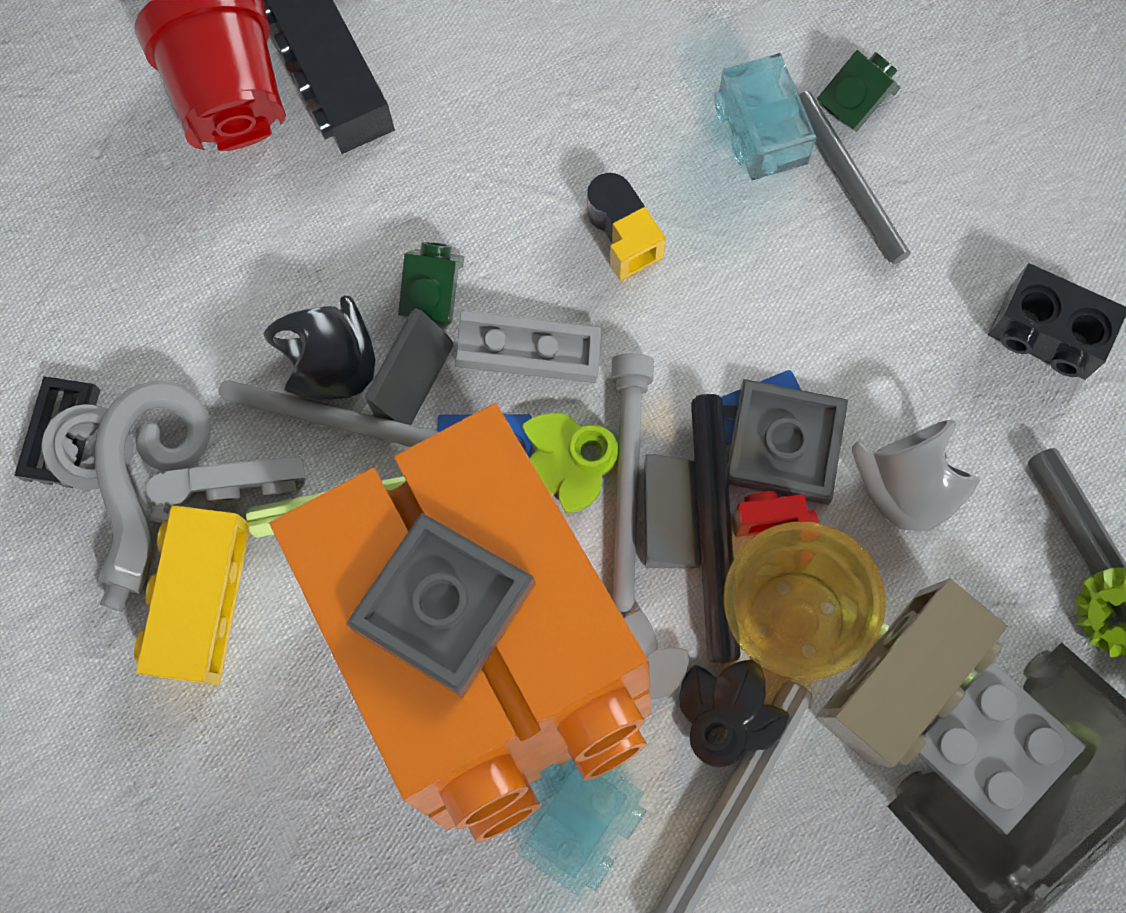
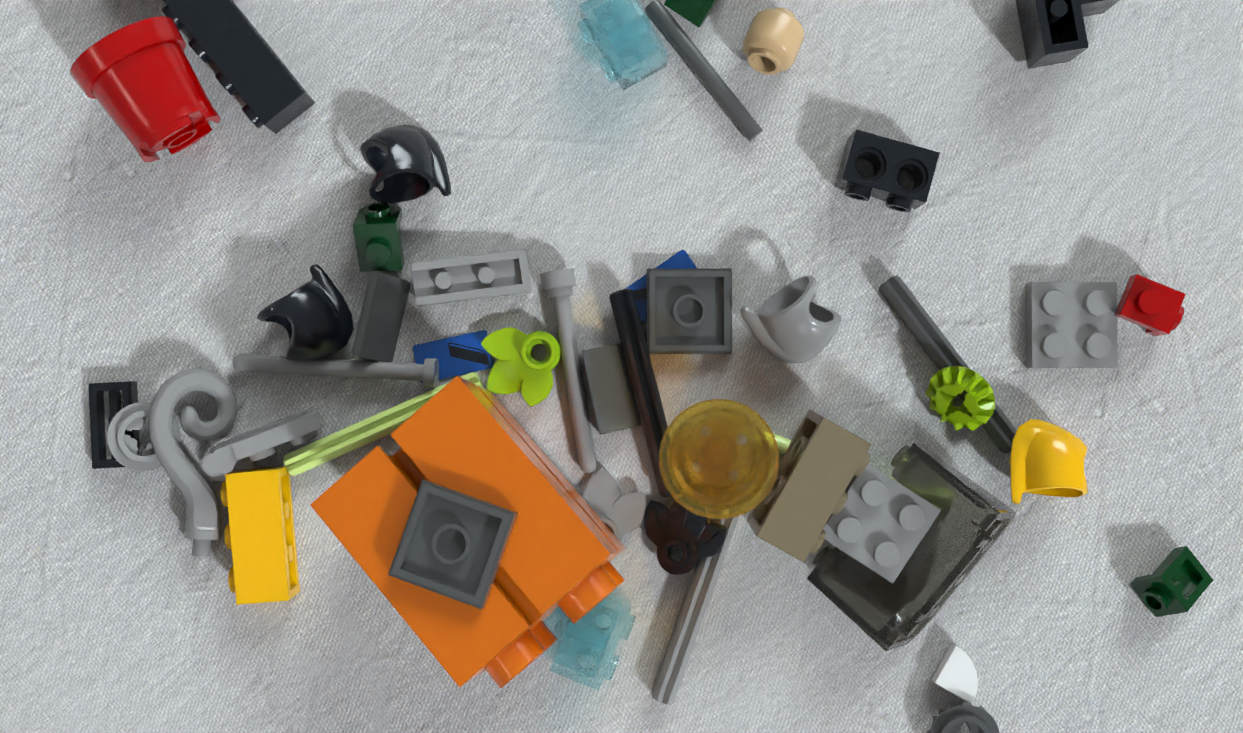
camera: 15 degrees left, 15 degrees up
(483, 185) = (406, 162): none -> black piece
(627, 222) = (518, 143): leg -> none
(765, 511) = (683, 375): red bracket -> none
(939, 156) = (773, 41): none -> tan head

